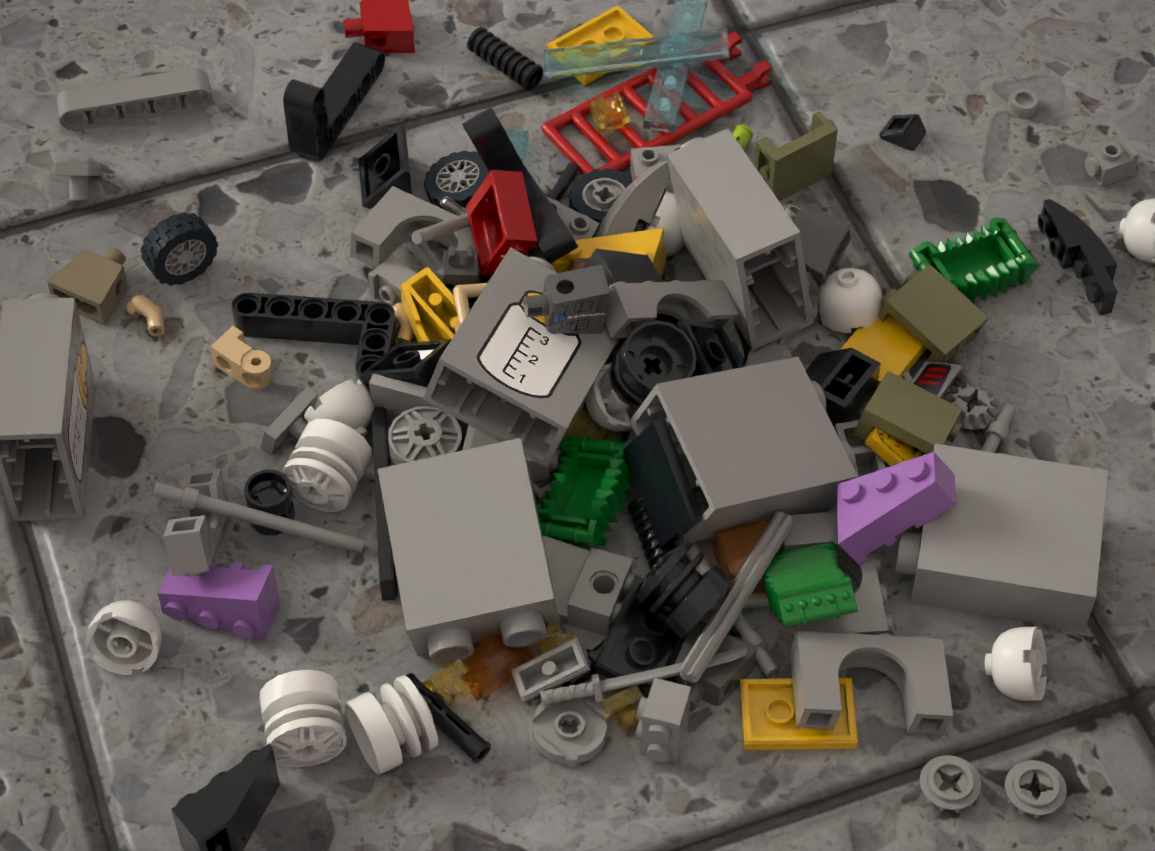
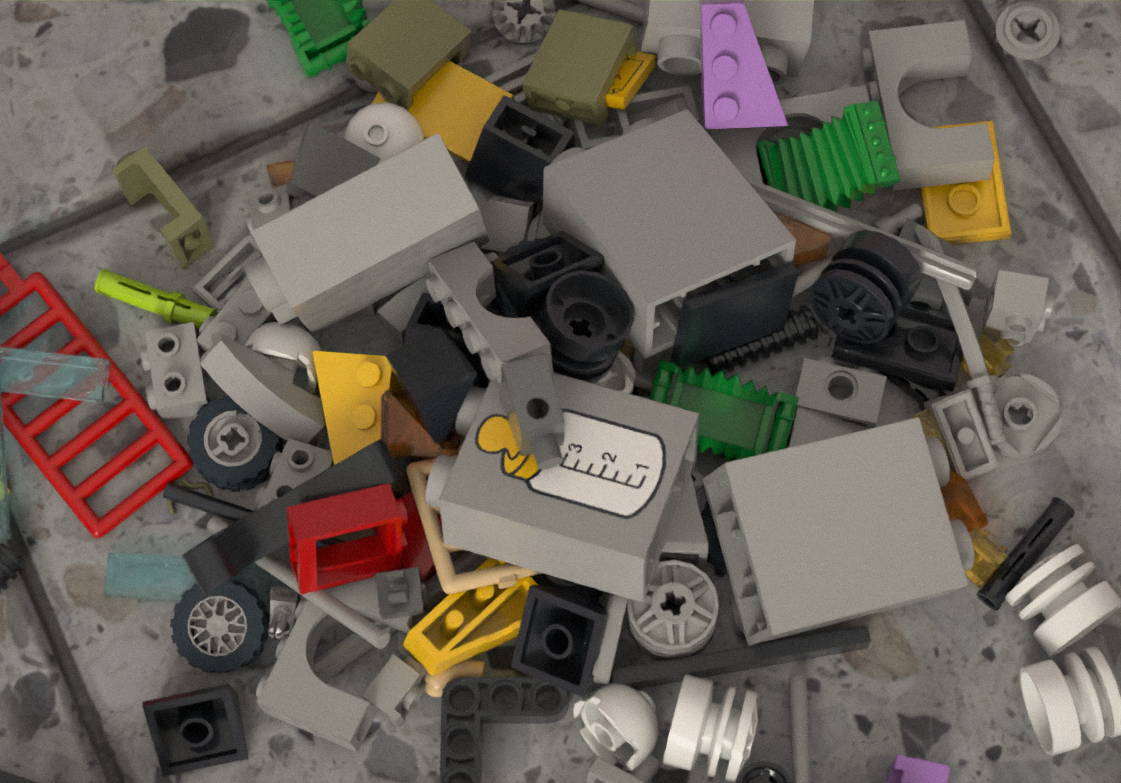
camera: 90 degrees left, 20 degrees up
(609, 113) = (82, 445): clear yellow tile -> none
(904, 131) = (86, 93): black slope -> none
(936, 377) = (503, 47): slope -> none

